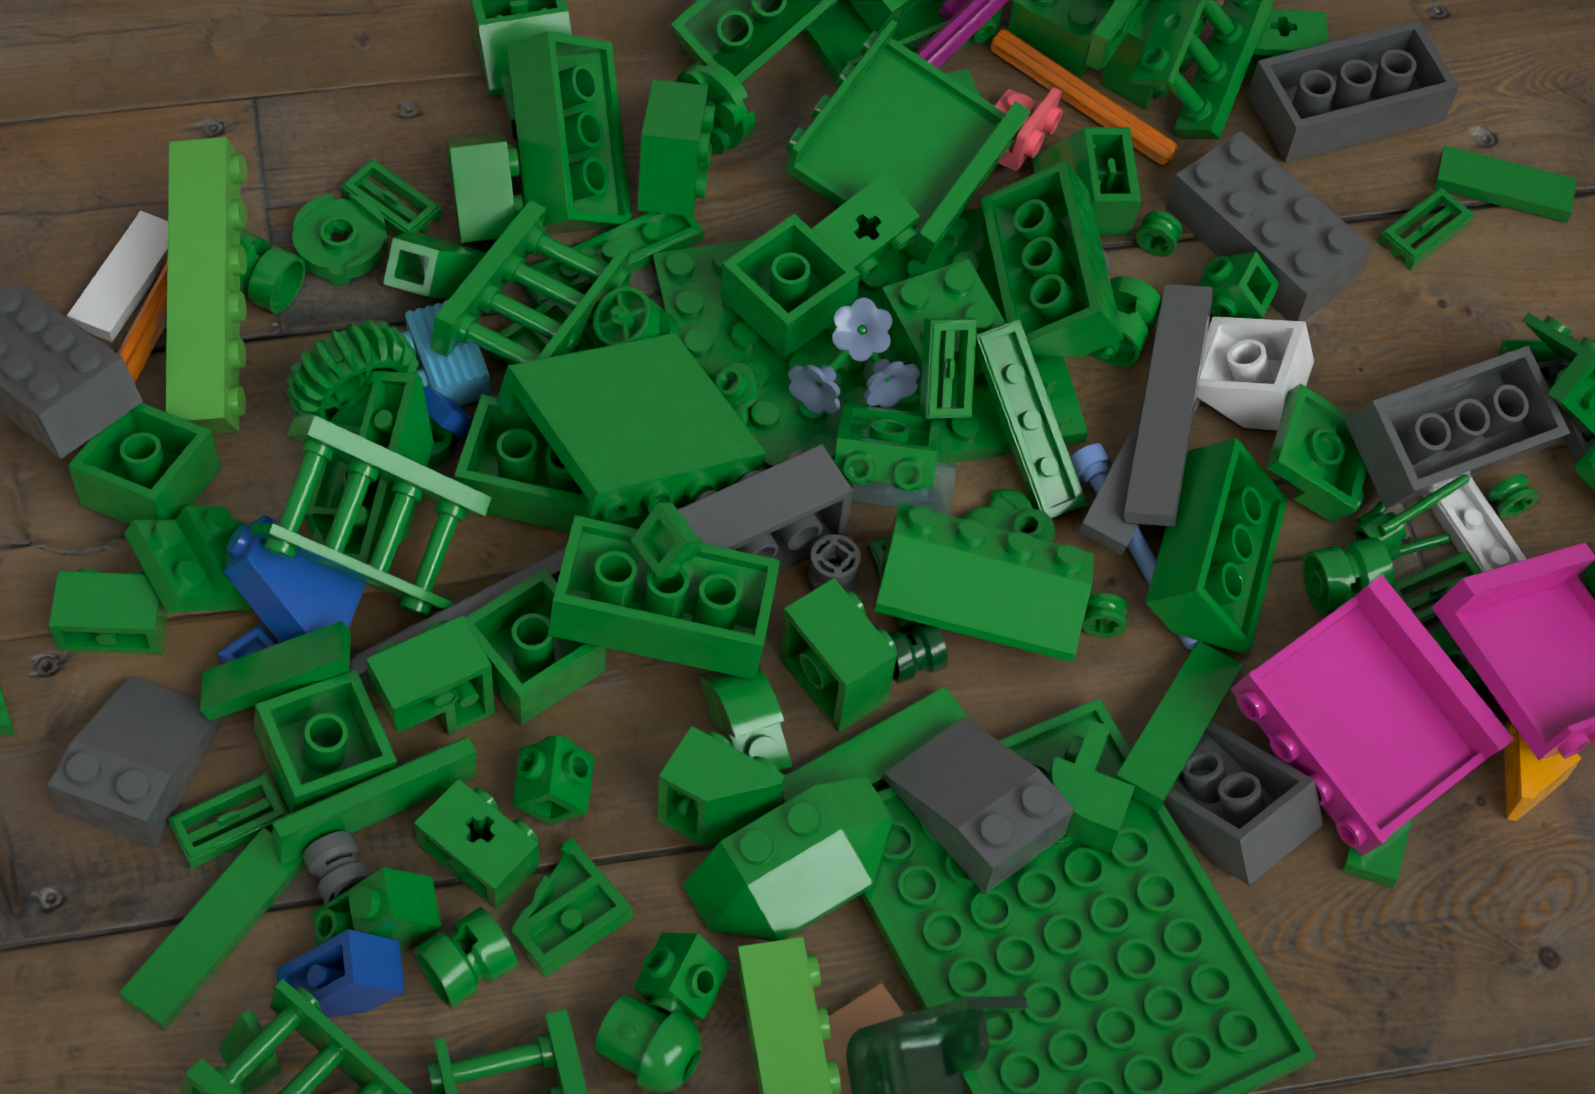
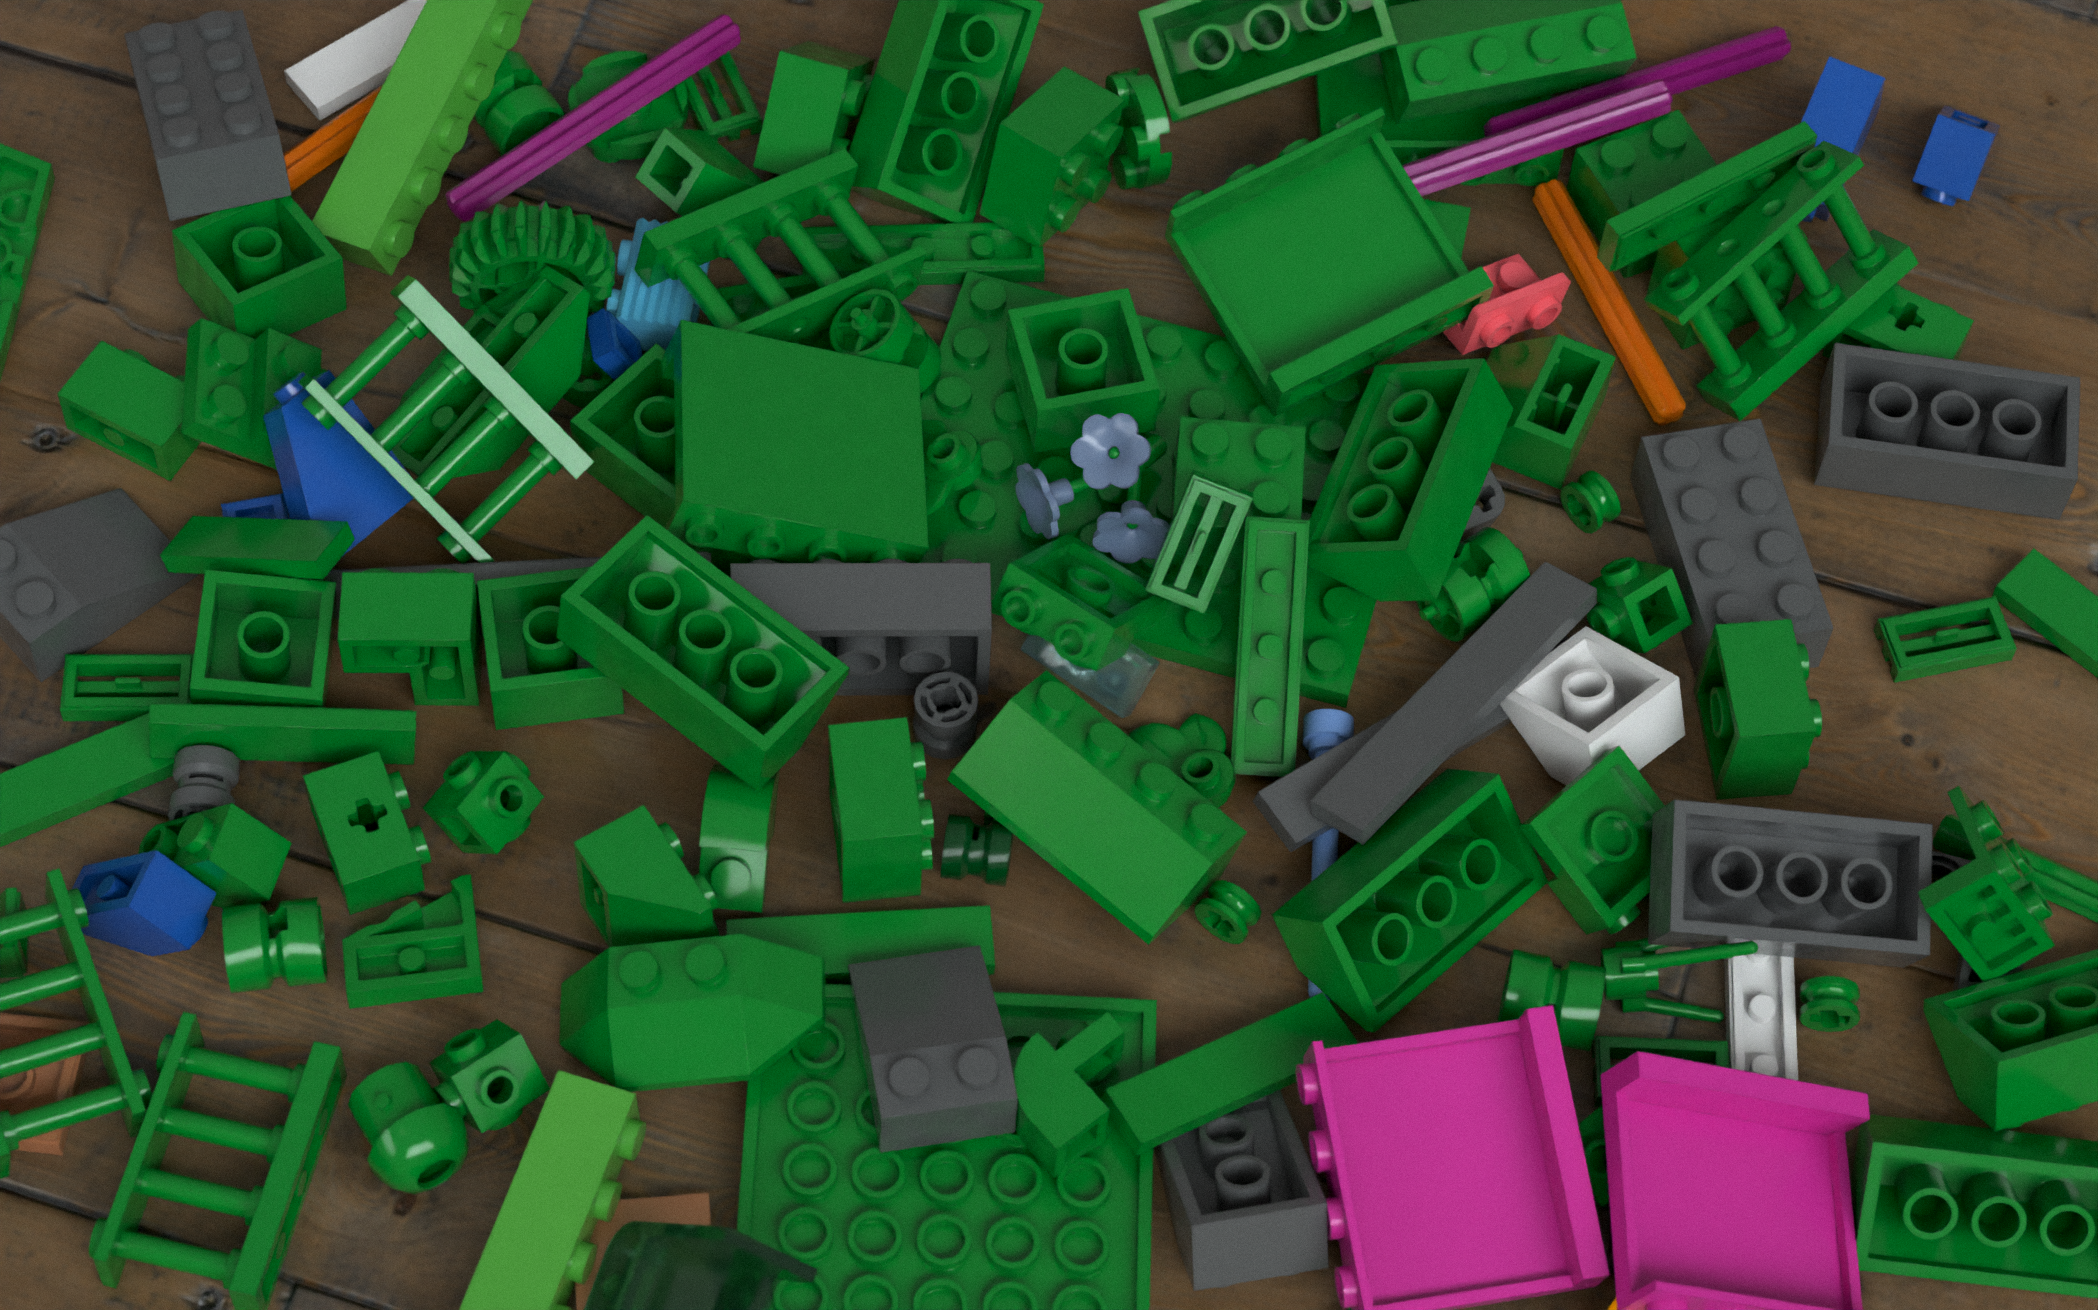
camera: 30 degrees right, 0 degrees up
(325, 256) = (593, 117): none -> magenta axle
(666, 540) = (722, 586): green tile -> none
(875, 205) = (1179, 336): green brick -> none
(1357, 322) = (1756, 708): none -> green brick

